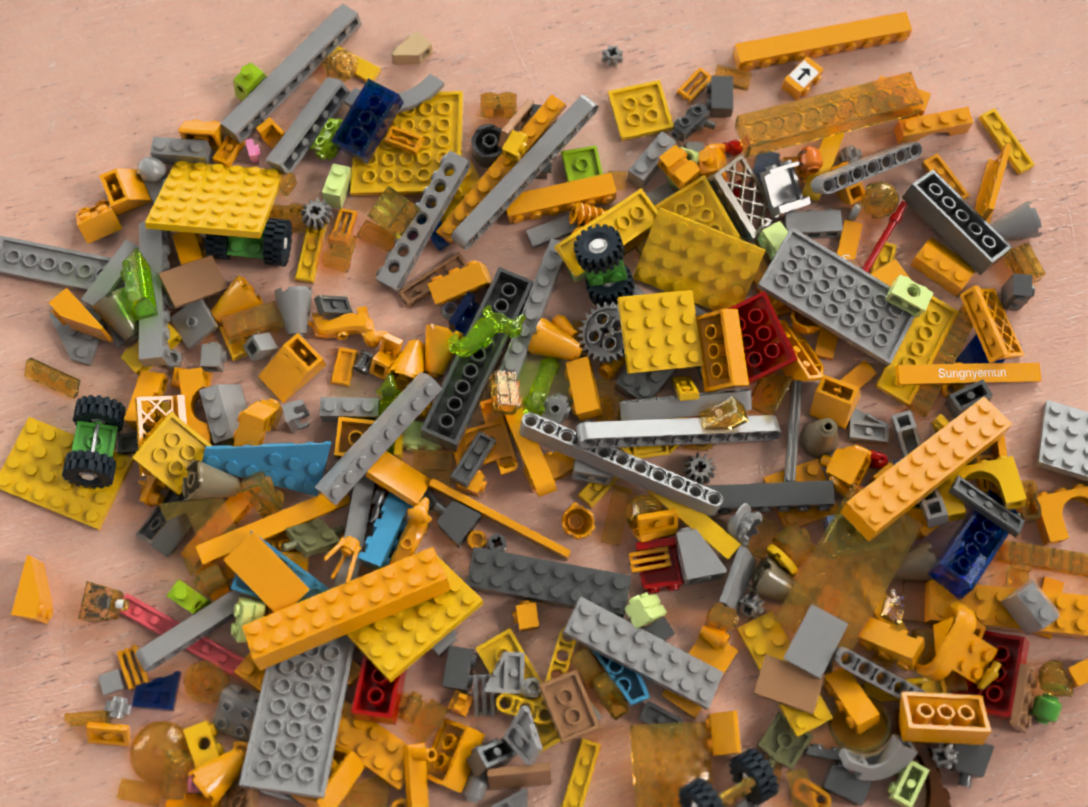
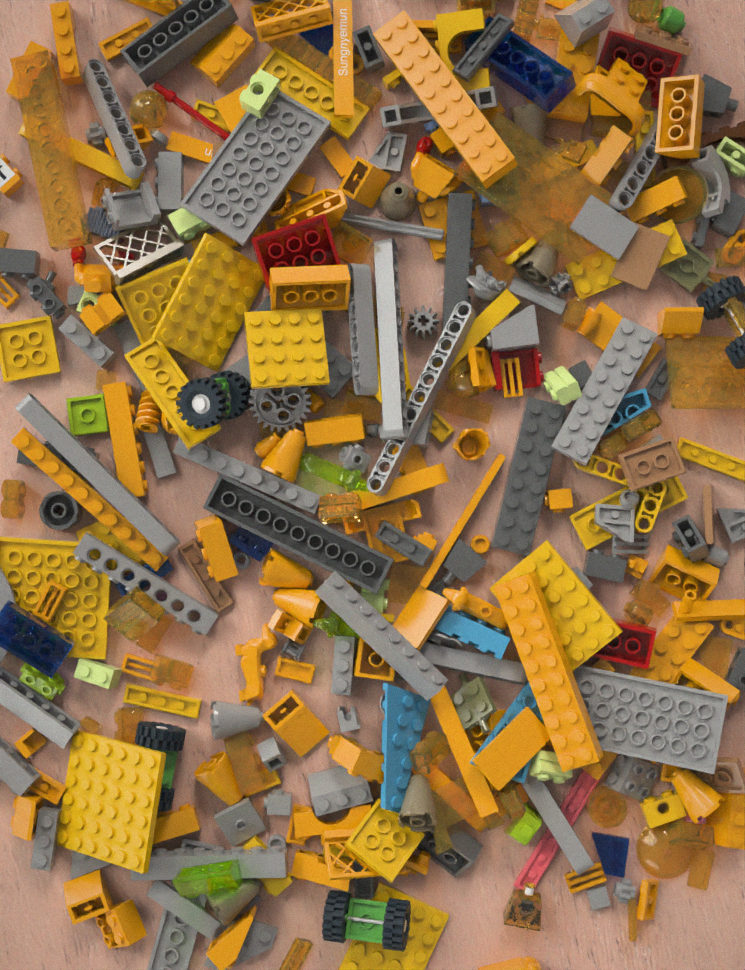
camera: 85 degrees left, 15 degrees up
(151, 169) = (66, 869): light grey hair -> none
(193, 281) = (200, 823): medium nougat tile -> none
(253, 150) = (50, 761): bright pink plate -> none
(323, 217) = (135, 699): light grey gear -> none
(332, 305) = (232, 679): dark grey plate -> none
(349, 547) = (488, 667): light orange plant -> none
(484, 330) = (276, 526): clear neon green animal -> none
(495, 538) = (492, 522): dark grey bush -> none
(515, 146) = (70, 482): yellow brick -> none
(516, 121) = (41, 481): medium nougat tile -> none
(523, 736) = (679, 507): light grey wing -> none
(685, 388) = (344, 328): yellow tile -> none
(724, 415) = (378, 292): clear yellow slope -> none
(810, 160) = (102, 176): orange head -> none
(950, 753) = (714, 124): light grey gear -> none
(990, 675) = (641, 68): yellow bar -> none

